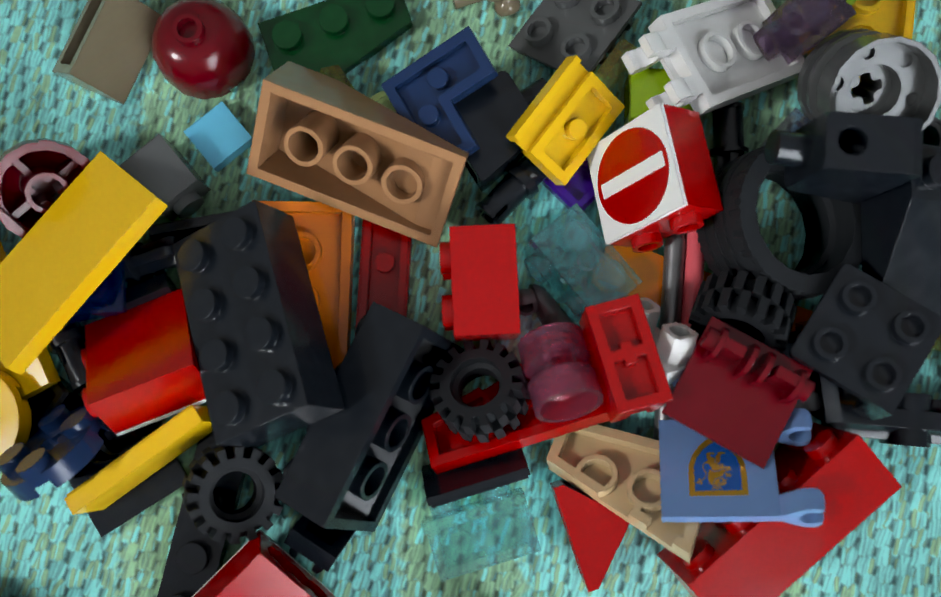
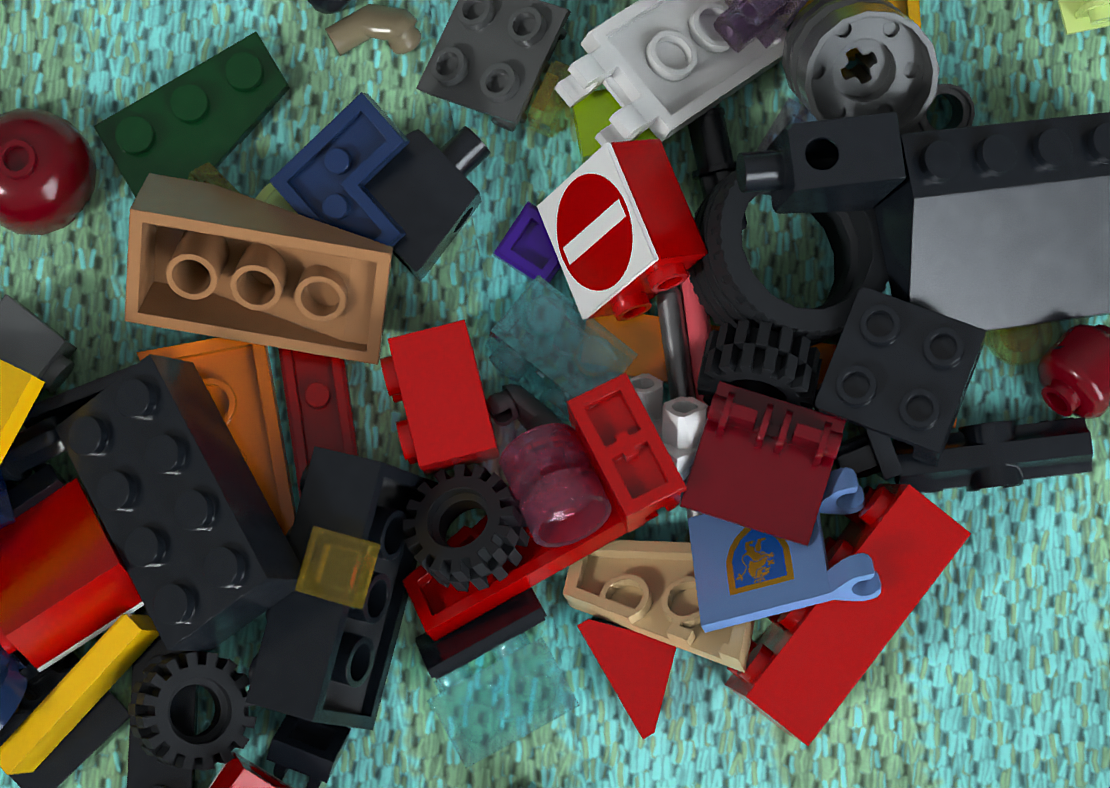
camera: 15 degrees left, 0 degrees up
(219, 136) = (75, 279): medium azure tile -> none
(370, 405) = (337, 567): none -> clear yellow tile
(518, 183) = (465, 260): black pin -> none
(565, 121) = (503, 178): yellow plate -> none

